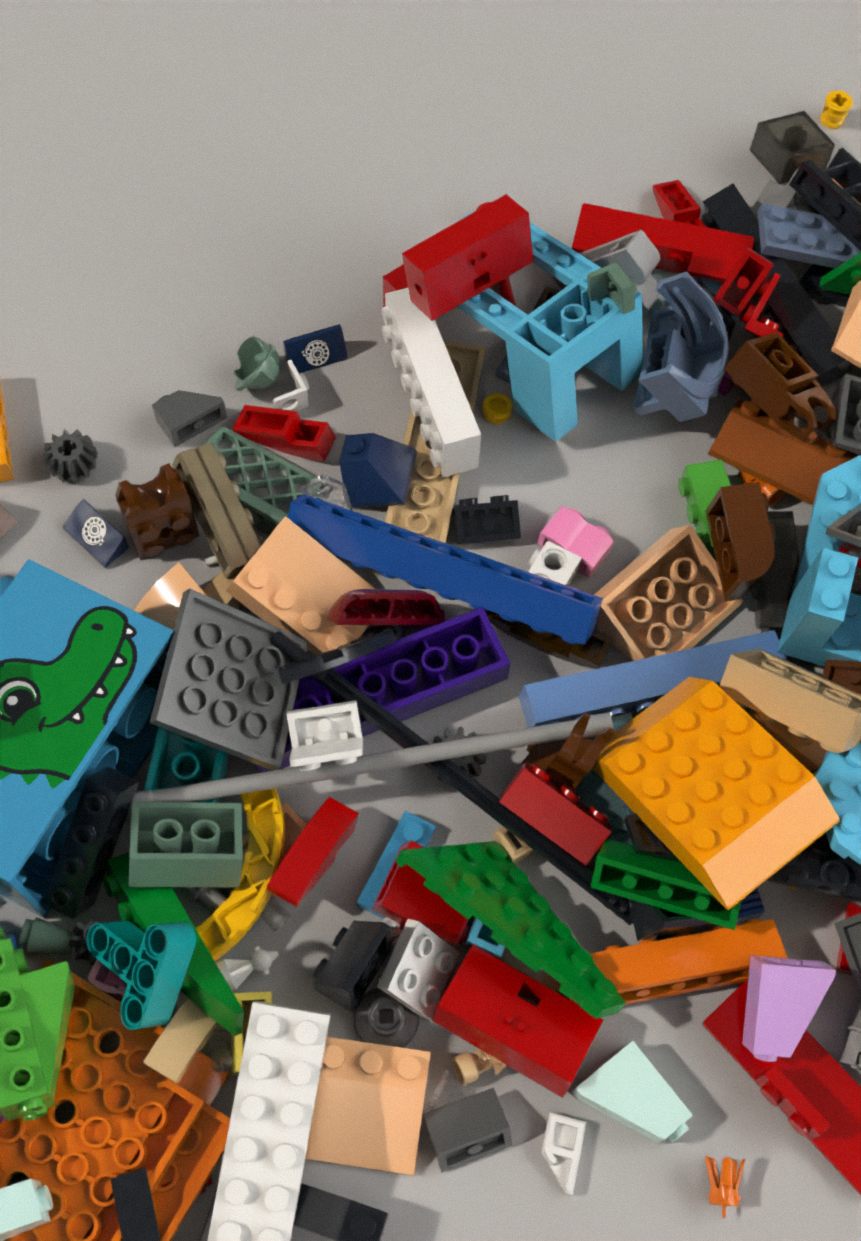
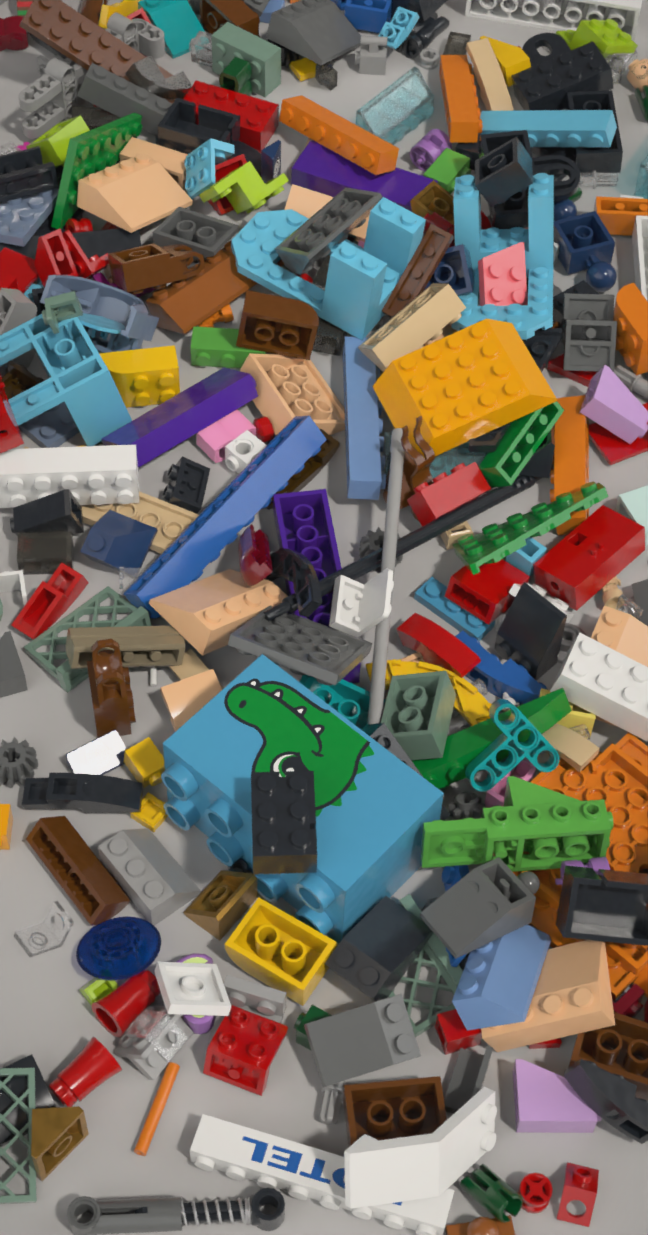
camera: 75 degrees left, 10 degrees down
(37, 521) = (84, 792): none -> black slope
(93, 573) = (145, 762): none -> yellow brick
(296, 952) = (501, 677): none -> blue slope
(347, 406) = (44, 551): none -> clear smoke brick
(385, 396) = (49, 514): none -> black slope
(577, 484) = (185, 414): none -> dark purple brick
(599, 577) = (264, 429): none -> red tile
(623, 429) = (144, 374): none -> yellow brick
(658, 348) = (101, 324): none -> medium azure piece
(830, 306) = (78, 226): none -> red wheel

